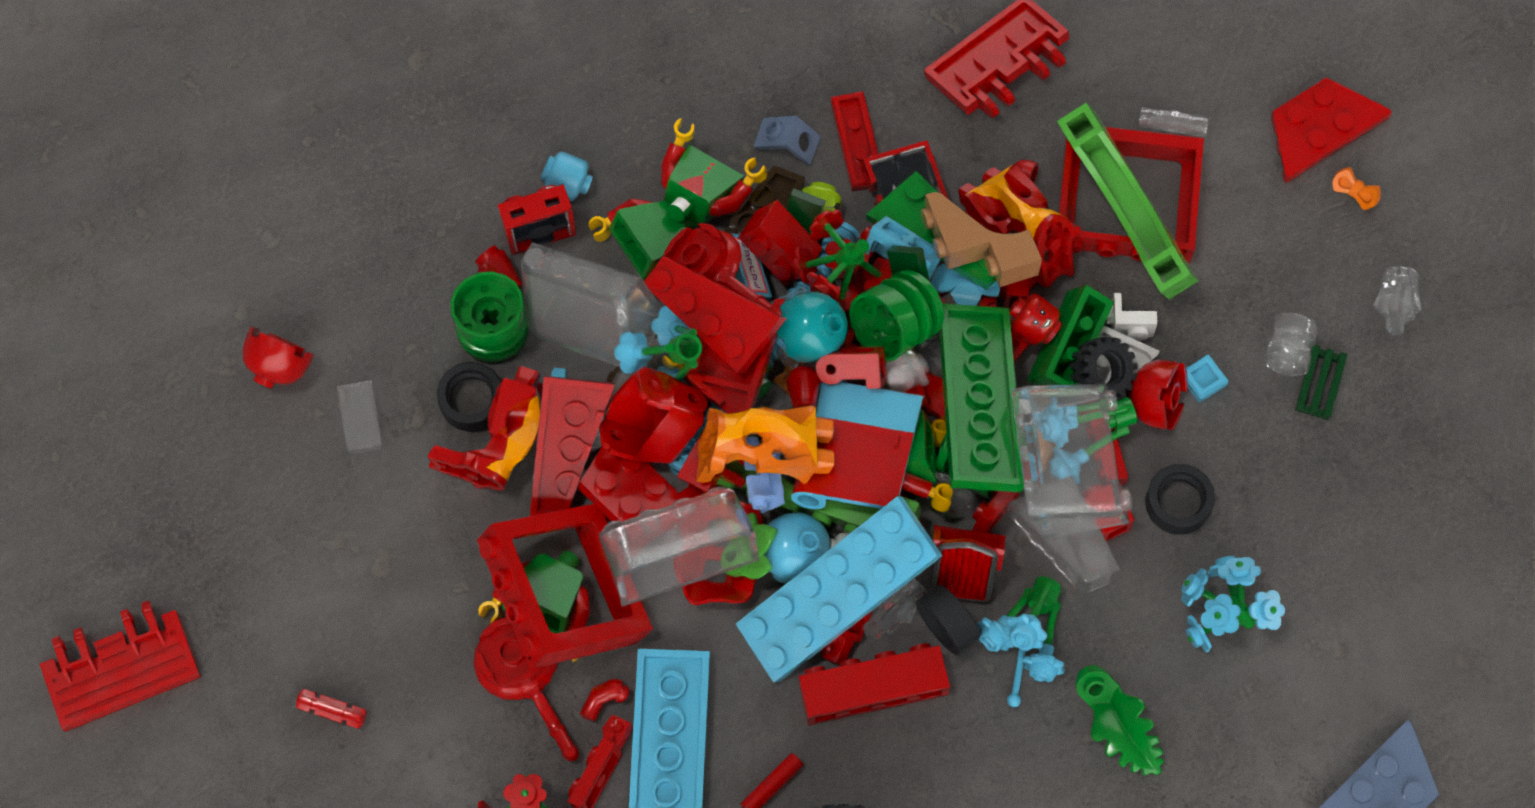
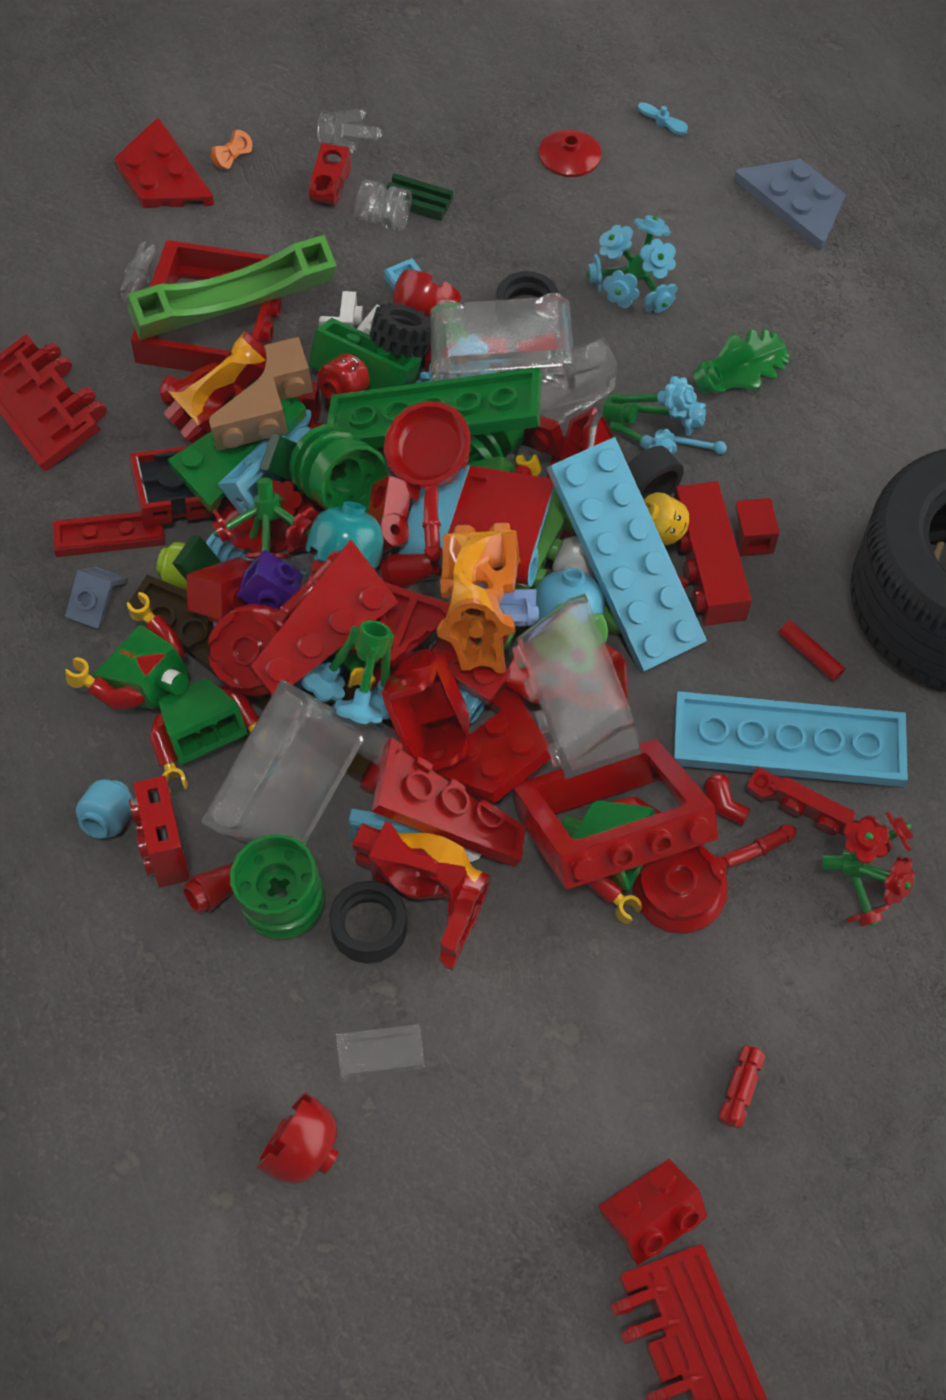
camera: 90 degrees left, 10 degrees down
(225, 635) = (654, 1211): none -> red bracket
(767, 270) = (269, 581): none -> dark purple brick
(892, 628) = (668, 516): none -> yellow head
(908, 728) = (757, 527): none -> red panel
(910, 388) = (428, 449): none -> red piece
(1330, 288) = (329, 176): none -> red leg
(1408, 553) = (570, 153): none -> red dish
(1485, 640) = (663, 119): none -> medium azure piece

